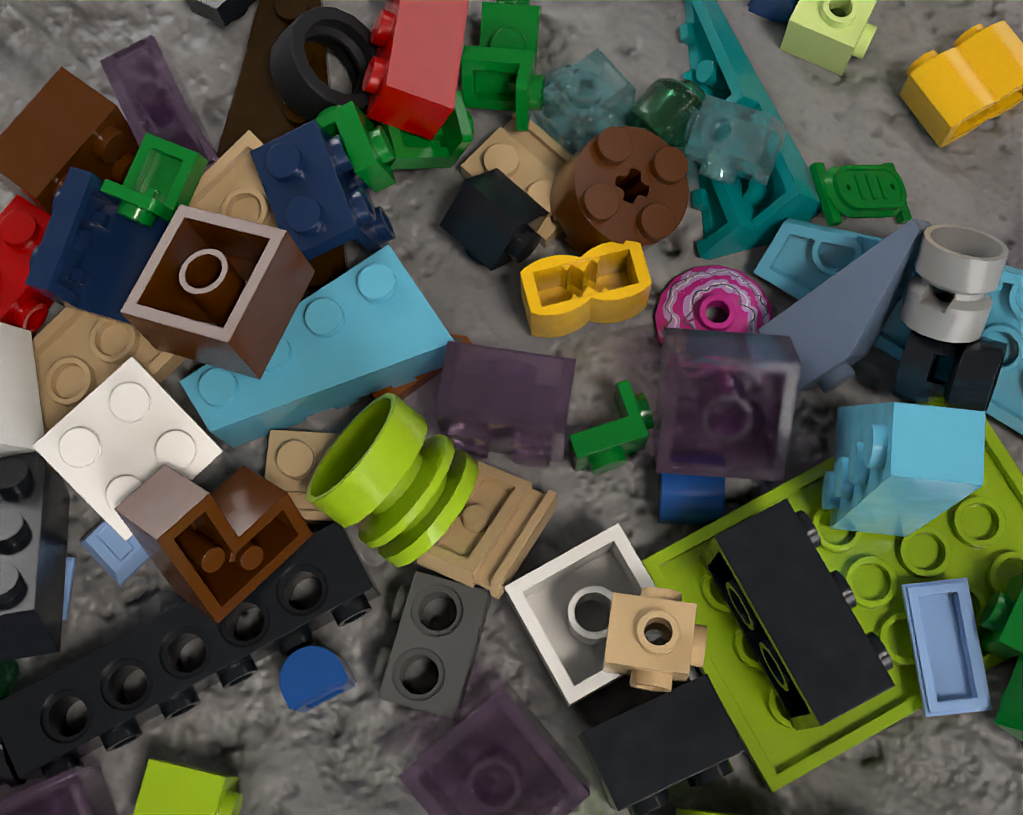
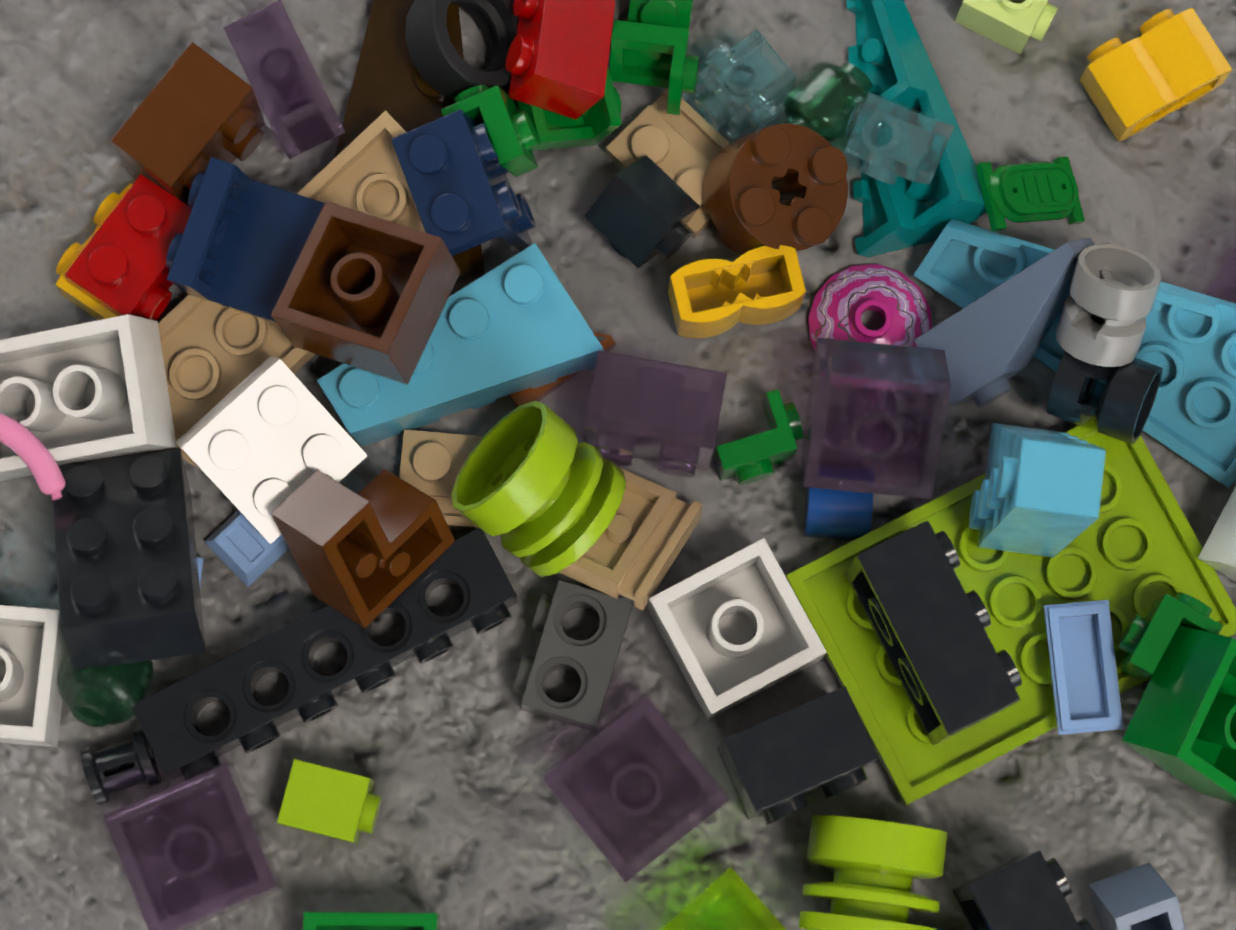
camera: 10 degrees left, 5 degrees up
(157, 181) = (296, 171): green bracket -> none
(314, 677) = (454, 684): blue brick -> none
(659, 613) = (795, 627): tan brick -> none

